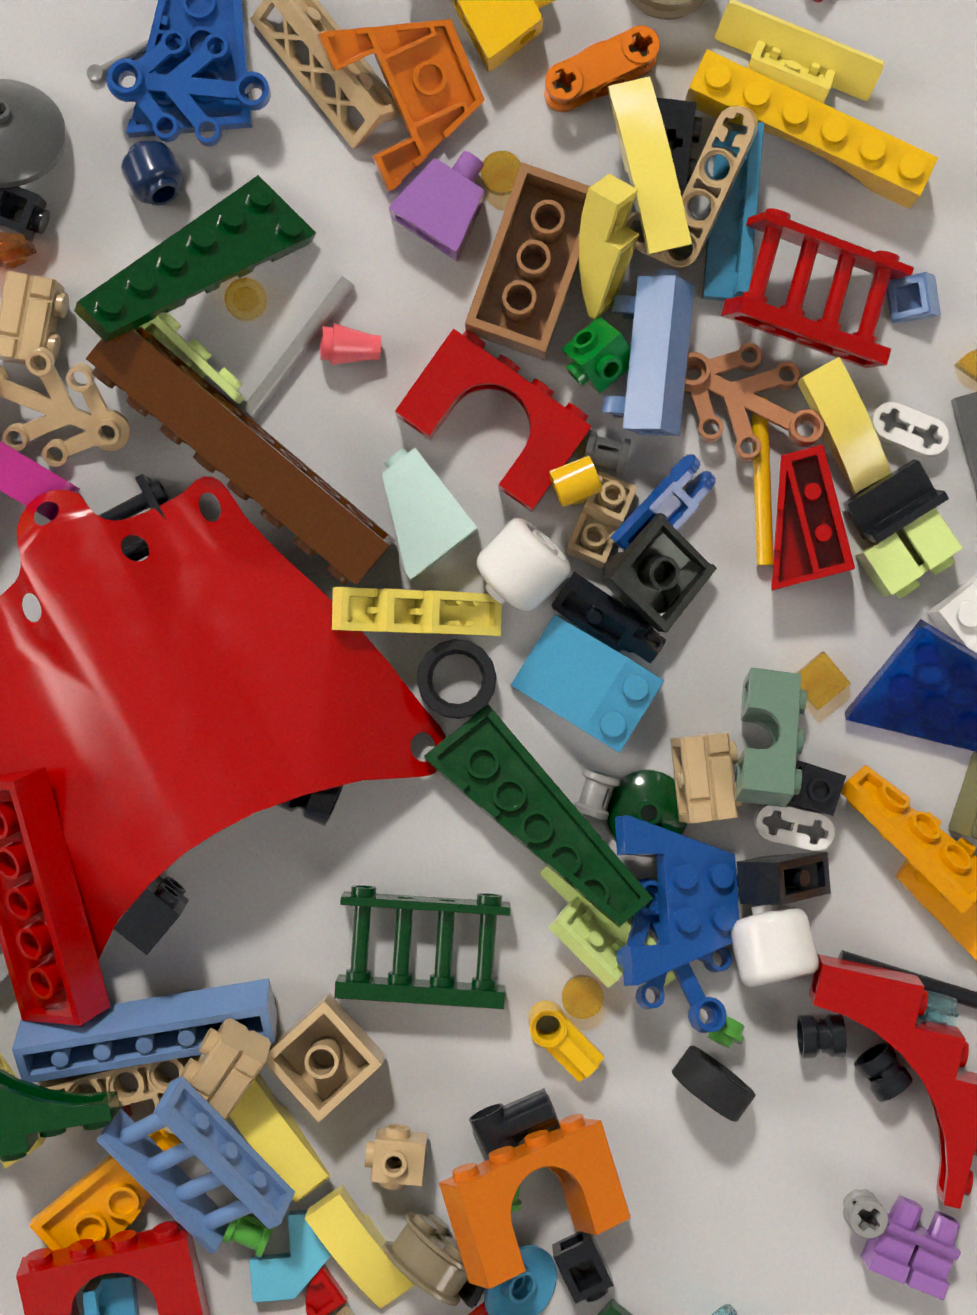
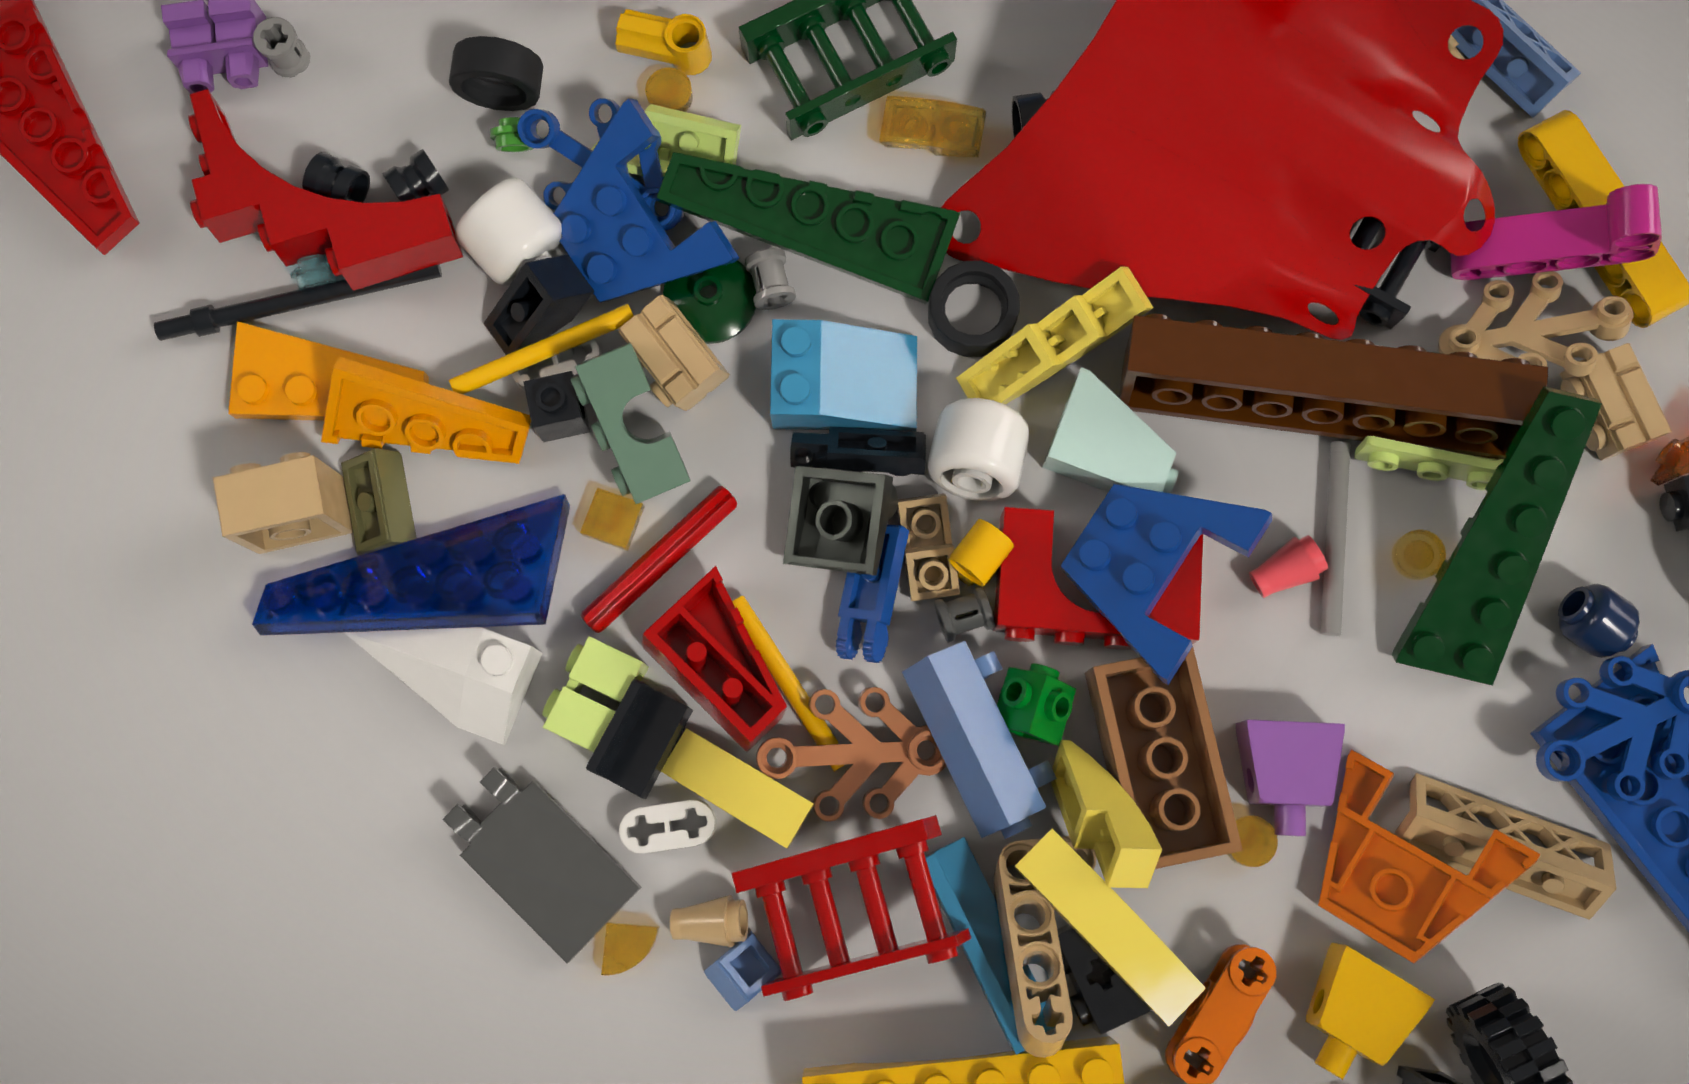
camera: 150 degrees right, 10 degrees down
(398, 842) = (932, 125): none -> clear yellow slope
(462, 416) = (1135, 551): none -> blue wing
(801, 838) = (541, 350): none -> yellow bar
(803, 628) = (659, 559): none -> red axle
(916, 342) = (711, 922): none -> tan cone

